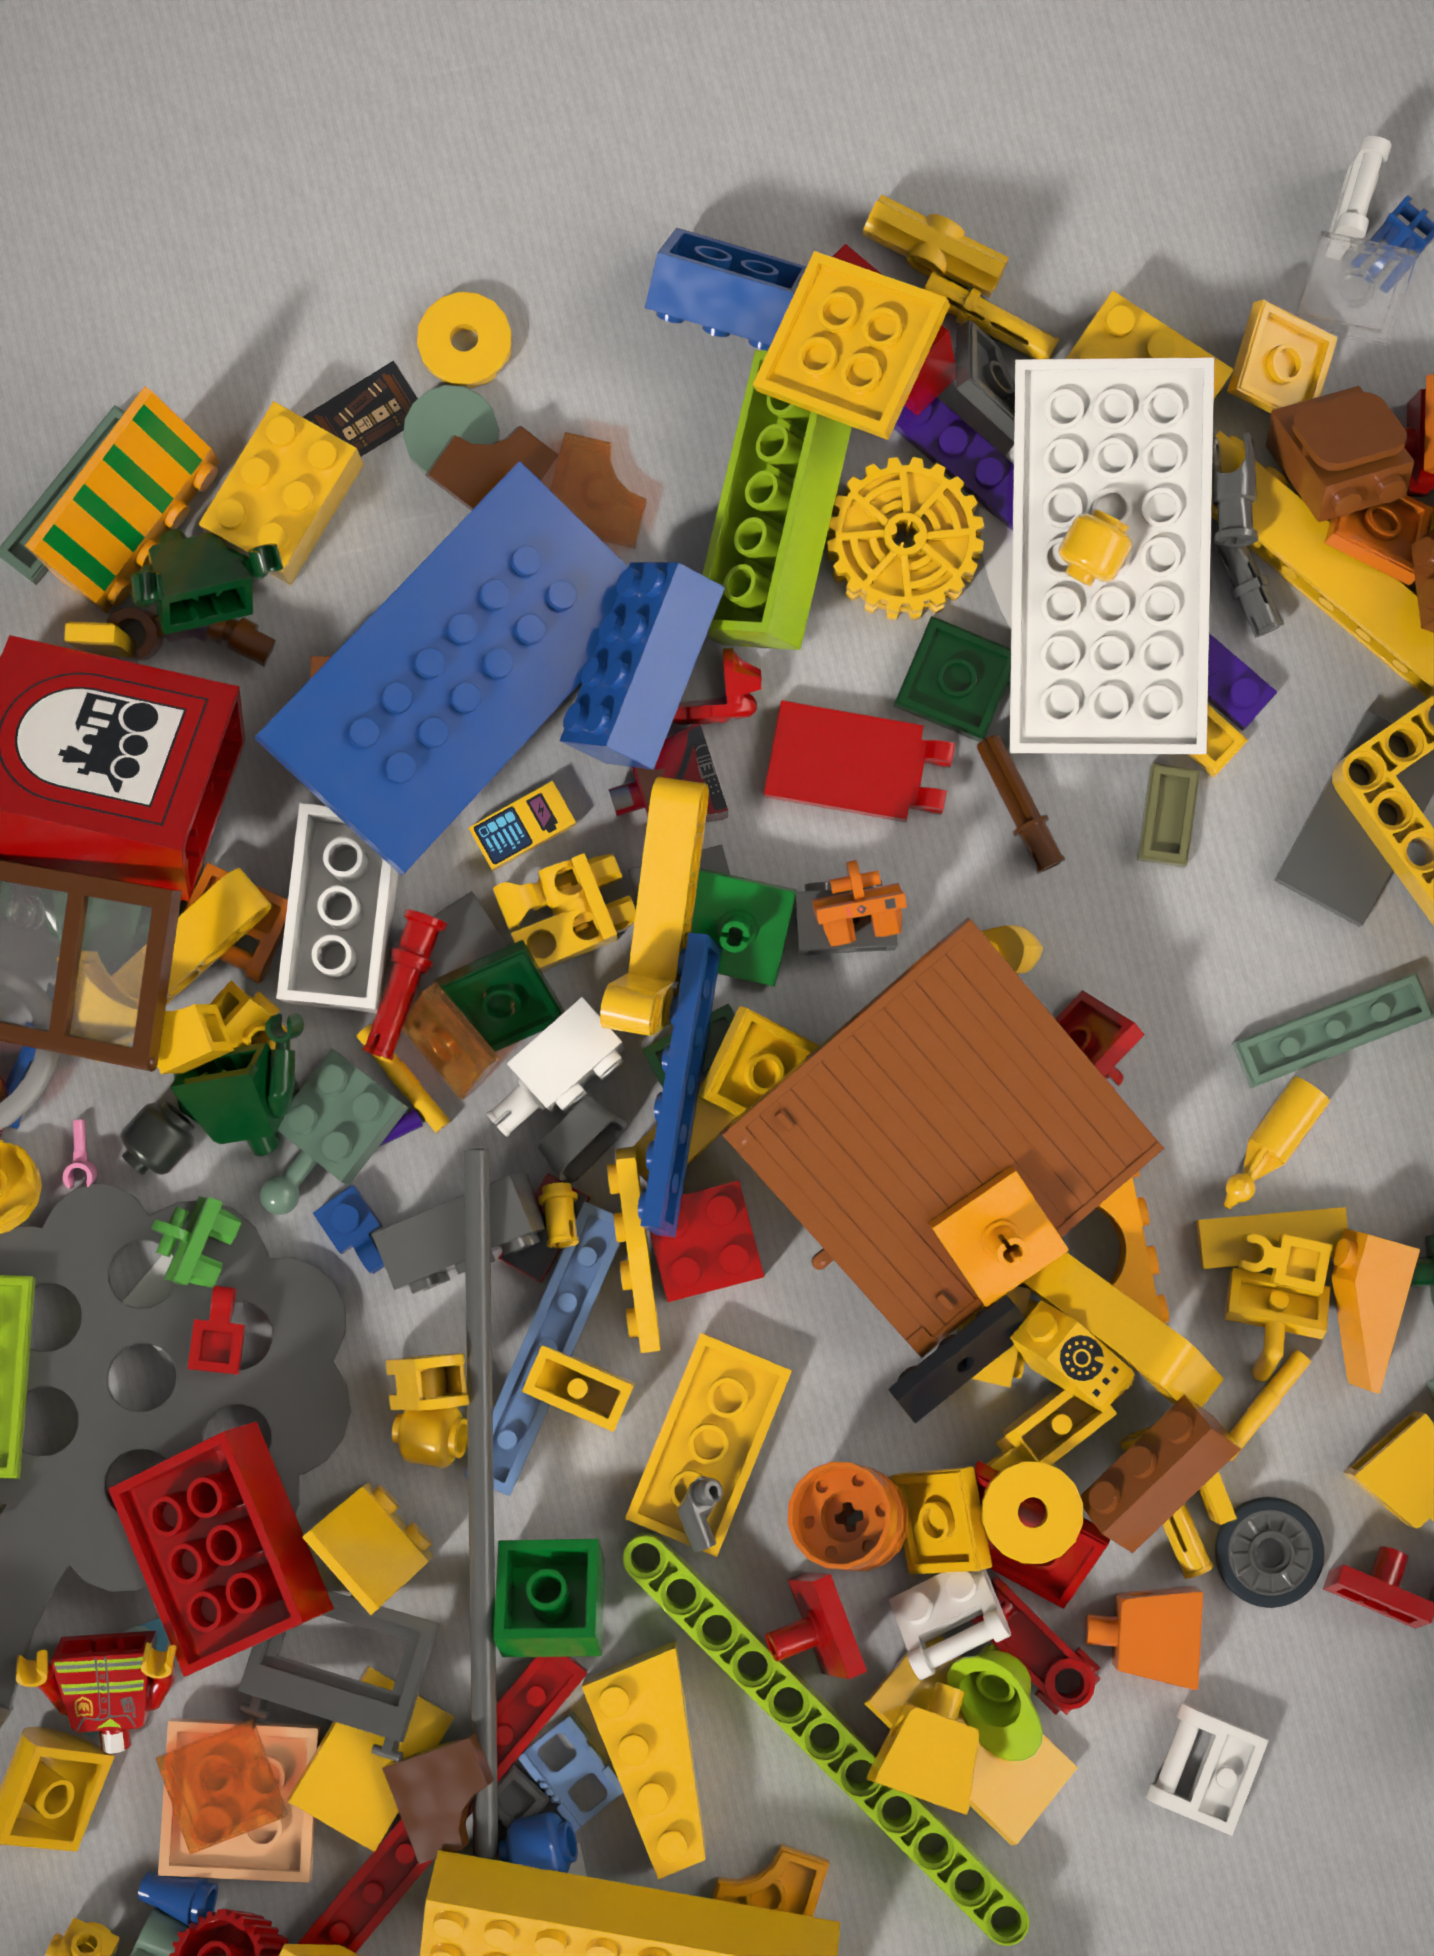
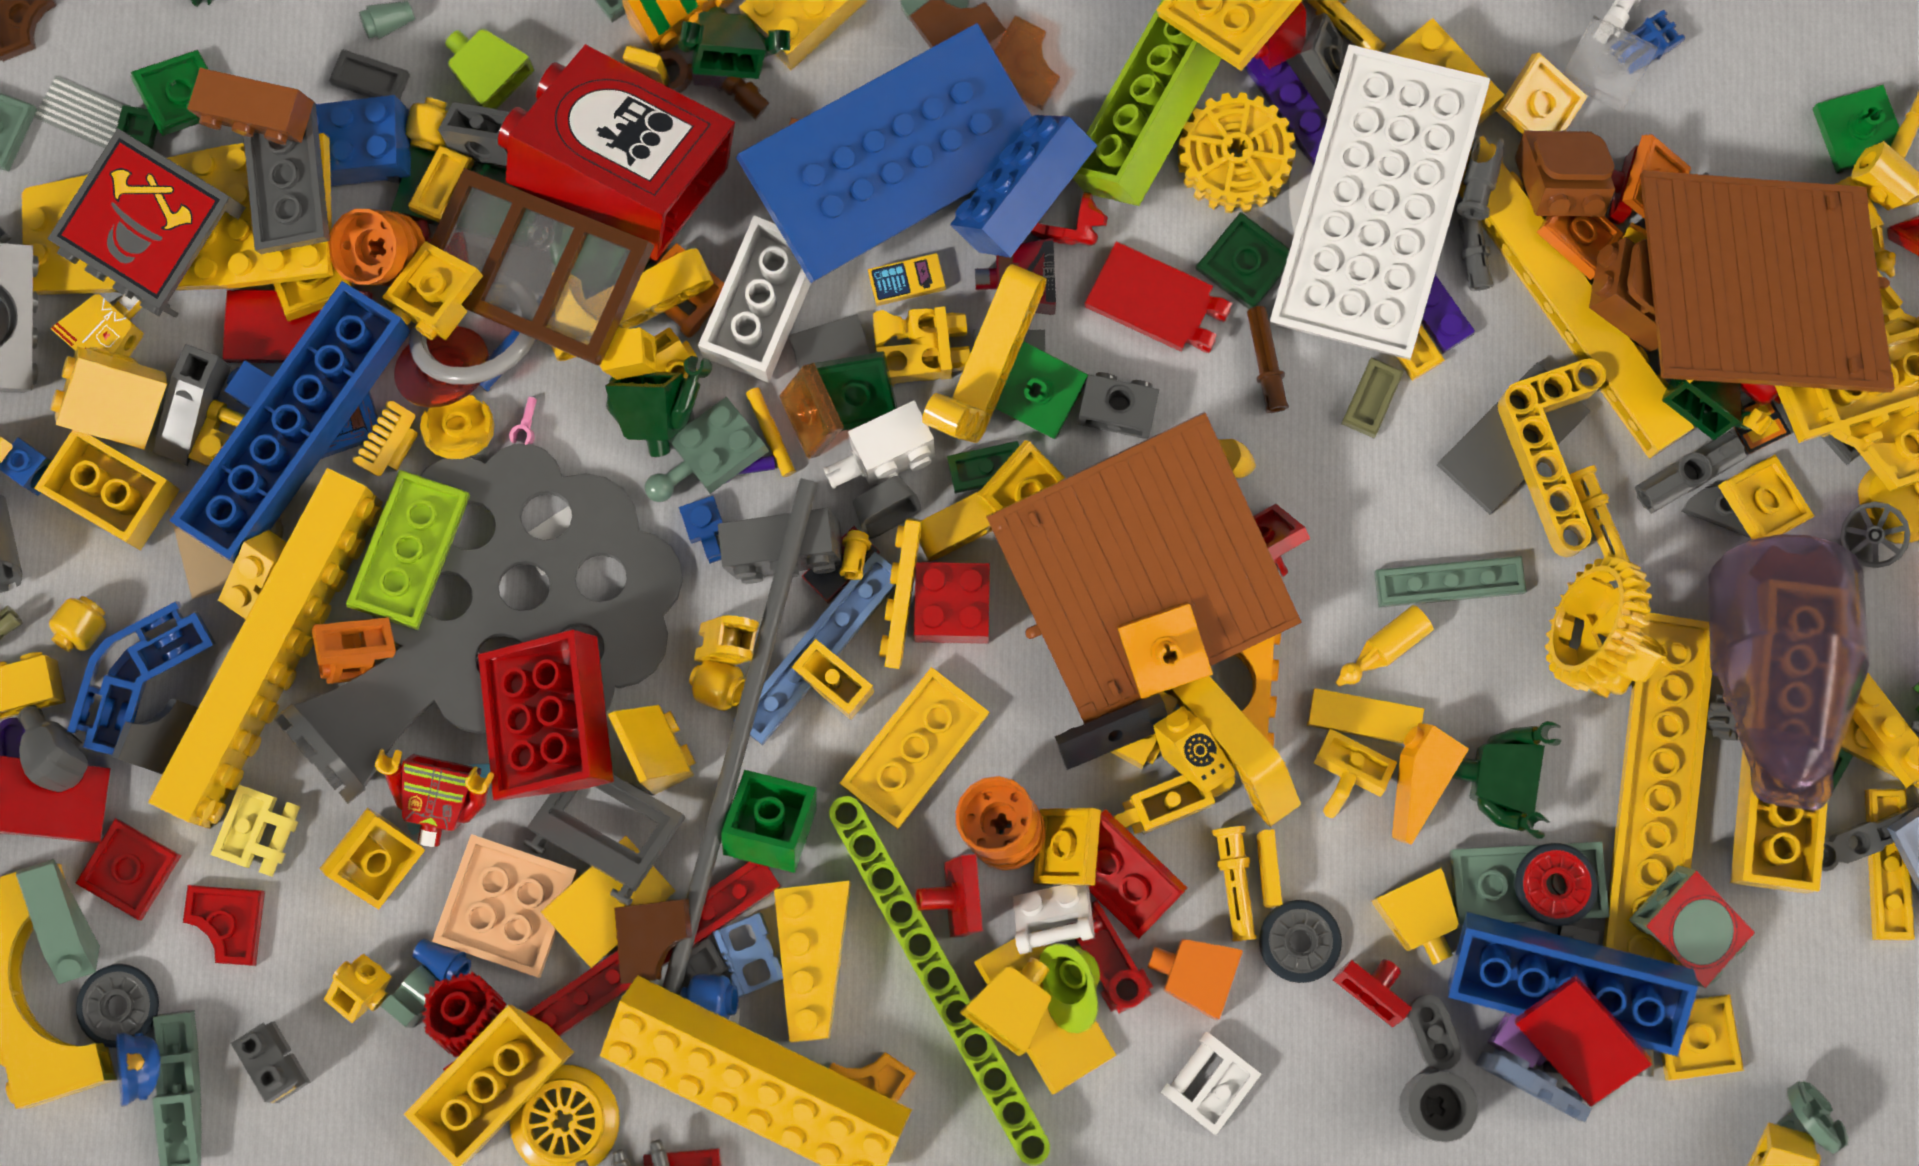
camera: 15 degrees right, 5 degrees down
(157, 1138) = (584, 423): pearl dark grey head -> none
(205, 1221) = (602, 490): bright green hips -> none
(218, 1342) = (586, 574): red plate -> none
(221, 1786) = (496, 889): clear orange tile -> none
(410, 961) = (799, 348): red pin -> none
(683, 1070) = (961, 494): blue plate -> none
(695, 1510) = (892, 788): dark grey arm -> none
(880, 902) = (1147, 396): orange hips -> none
(1062, 1516) = (1147, 834): yellow tile -> none
(1095, 547) = (1369, 188): yellow head -> none
(1158, 1474) = (1233, 852): dark orange brick -> none
(1269, 1399) = (1325, 834): yellow piece -> none
(1294, 1261) = (1376, 734): yellow plate -> none

